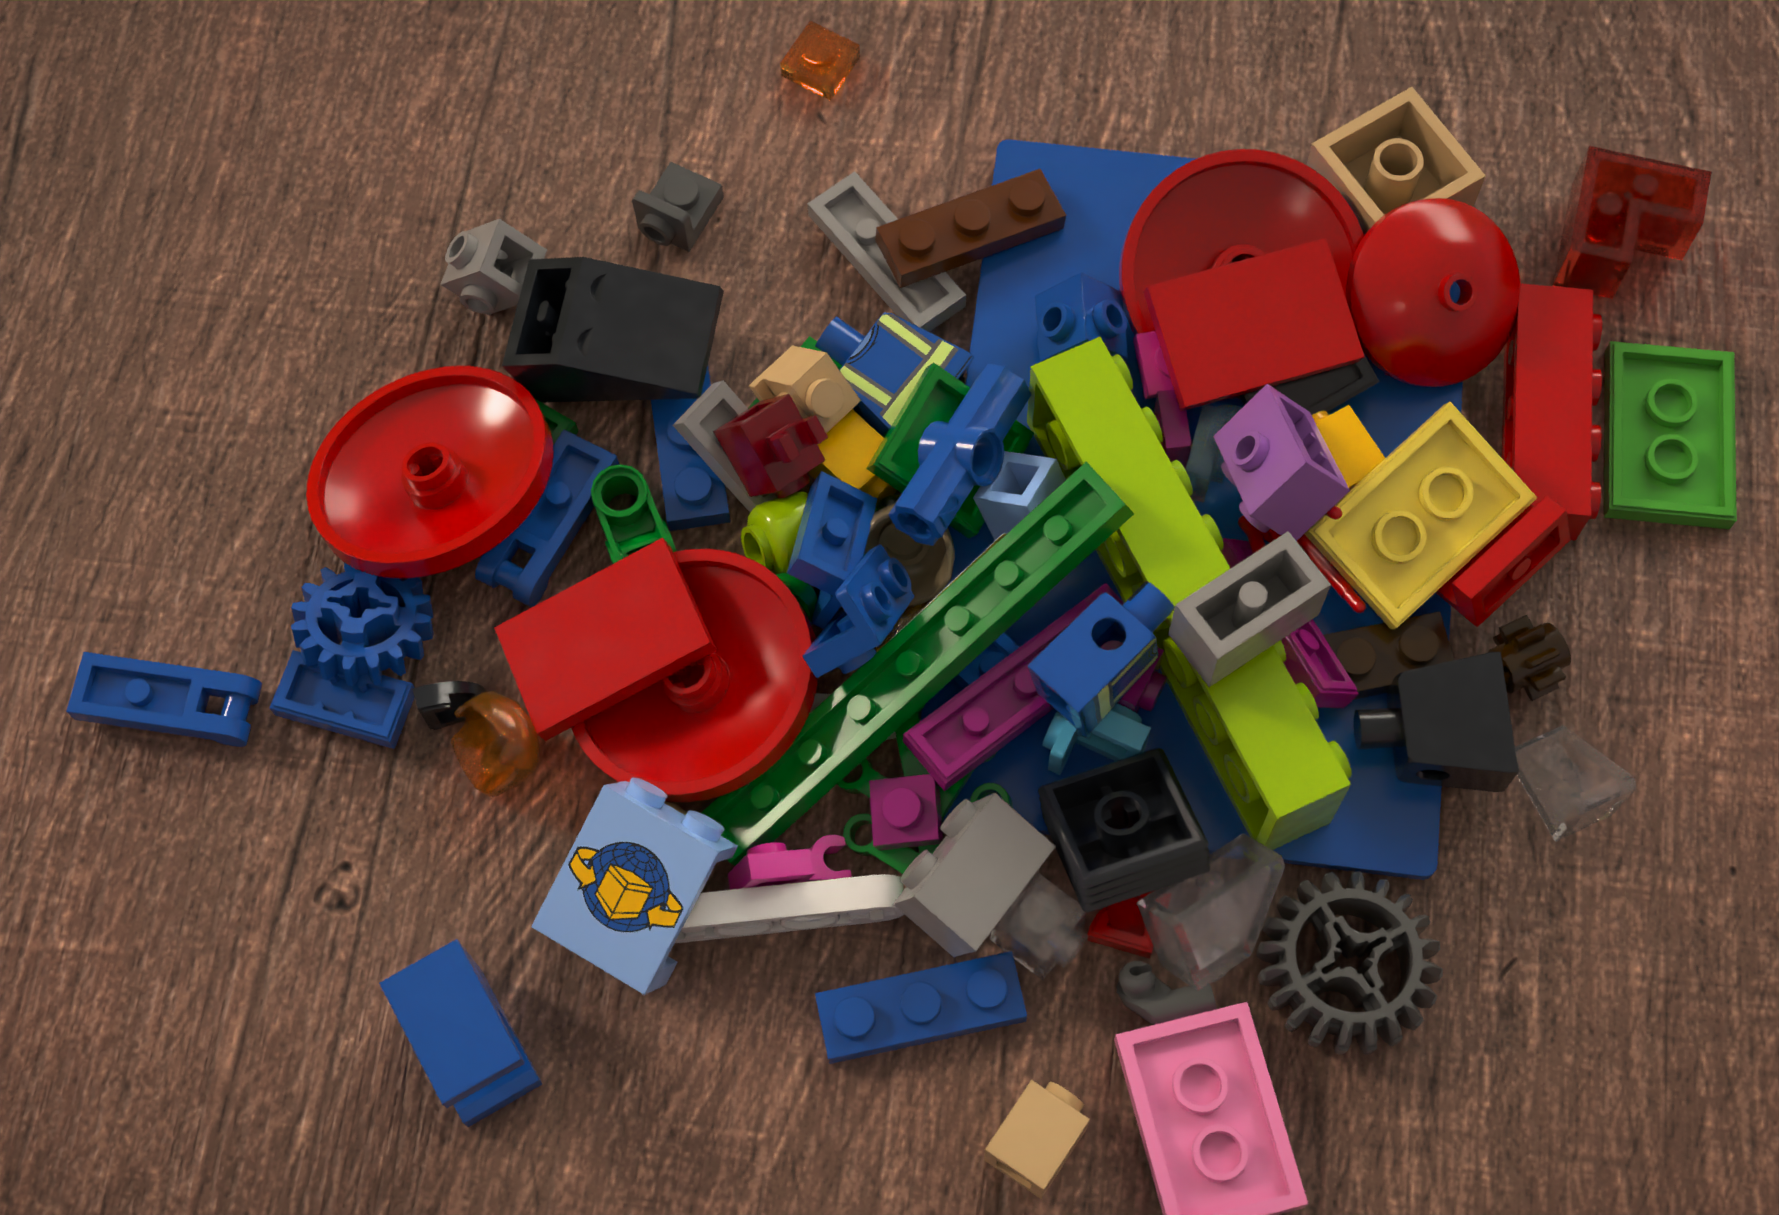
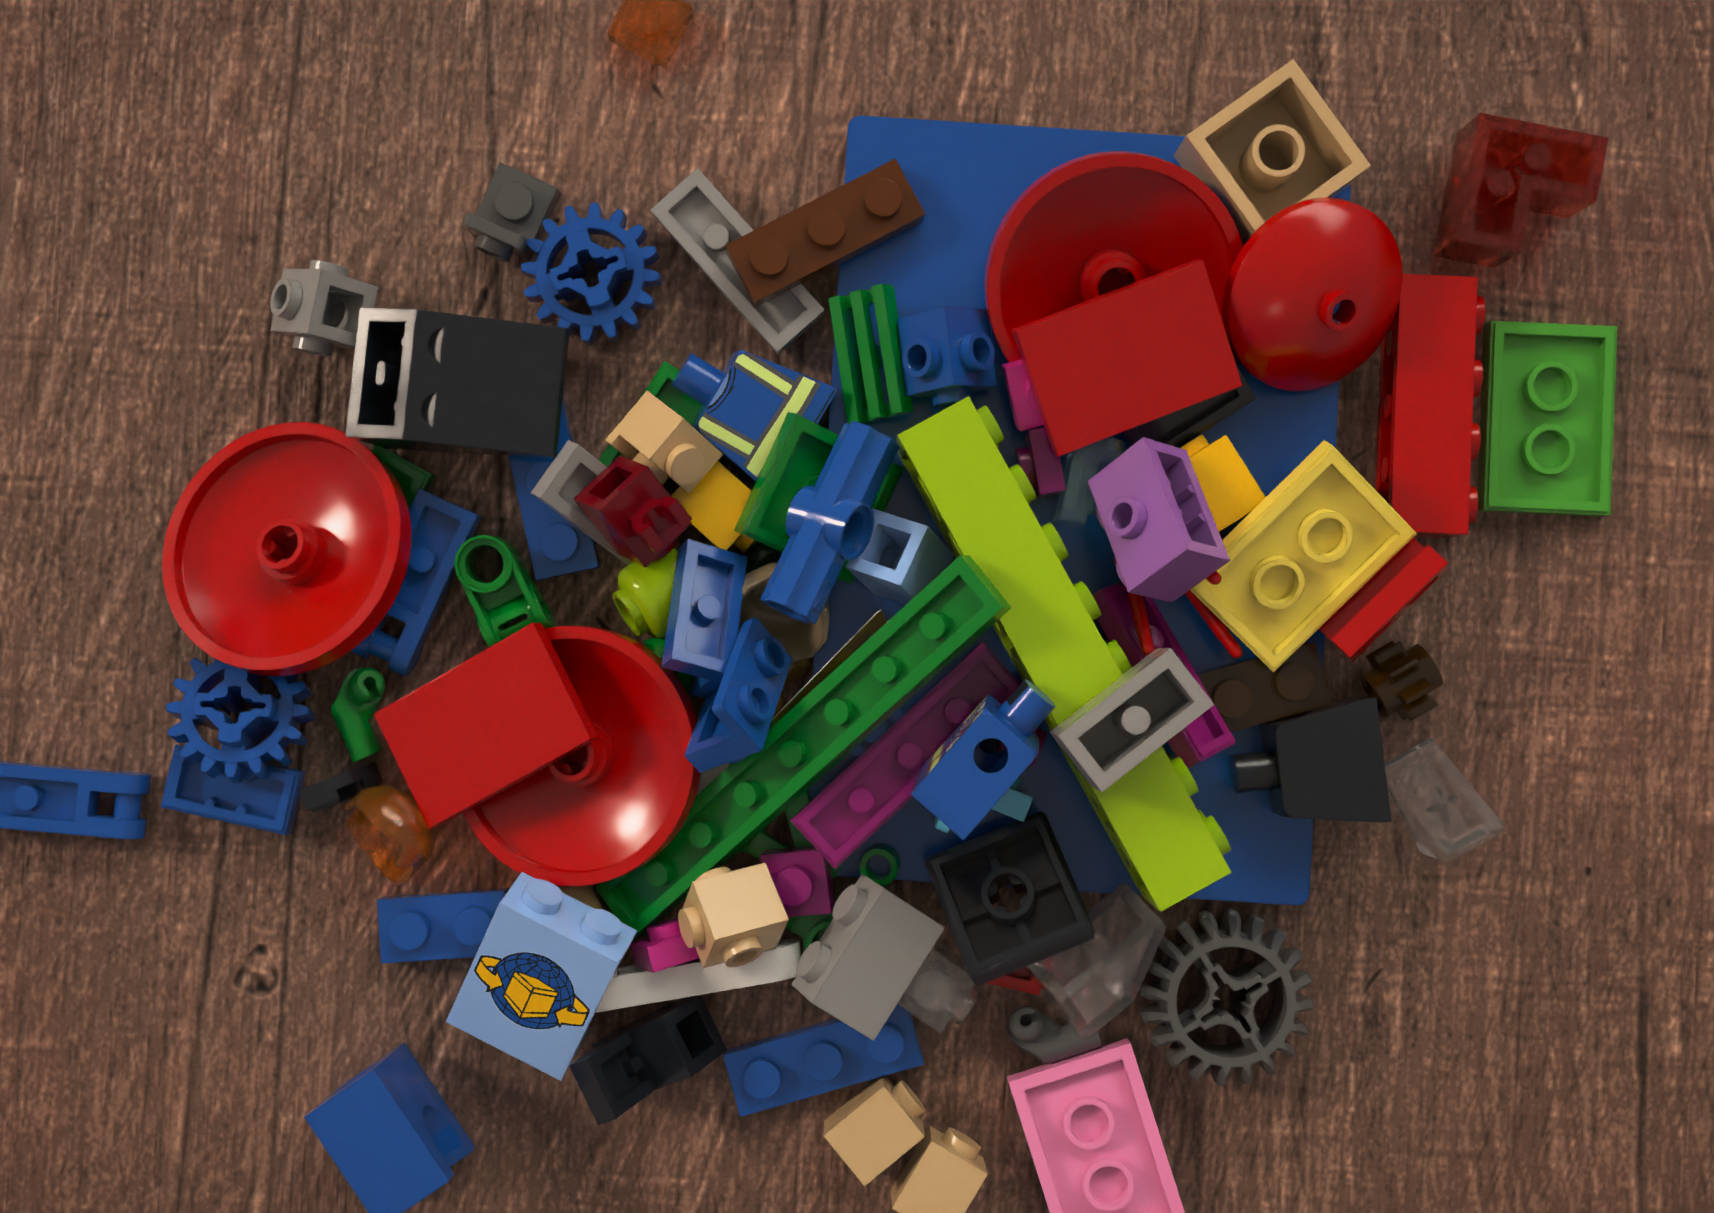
camera: 10 degrees left, 20 degrees up
(474, 633) = (354, 709): none -> green arm
(521, 847) = (435, 924): none -> blue plate
(739, 981) = (647, 1056): none -> black brick
(777, 250) = (567, 279): none -> blue gear
(838, 828) = (732, 915): none -> tan brick
(972, 1074) = (875, 1127): none -> tan brick
(994, 320) = (861, 357): none -> green tile

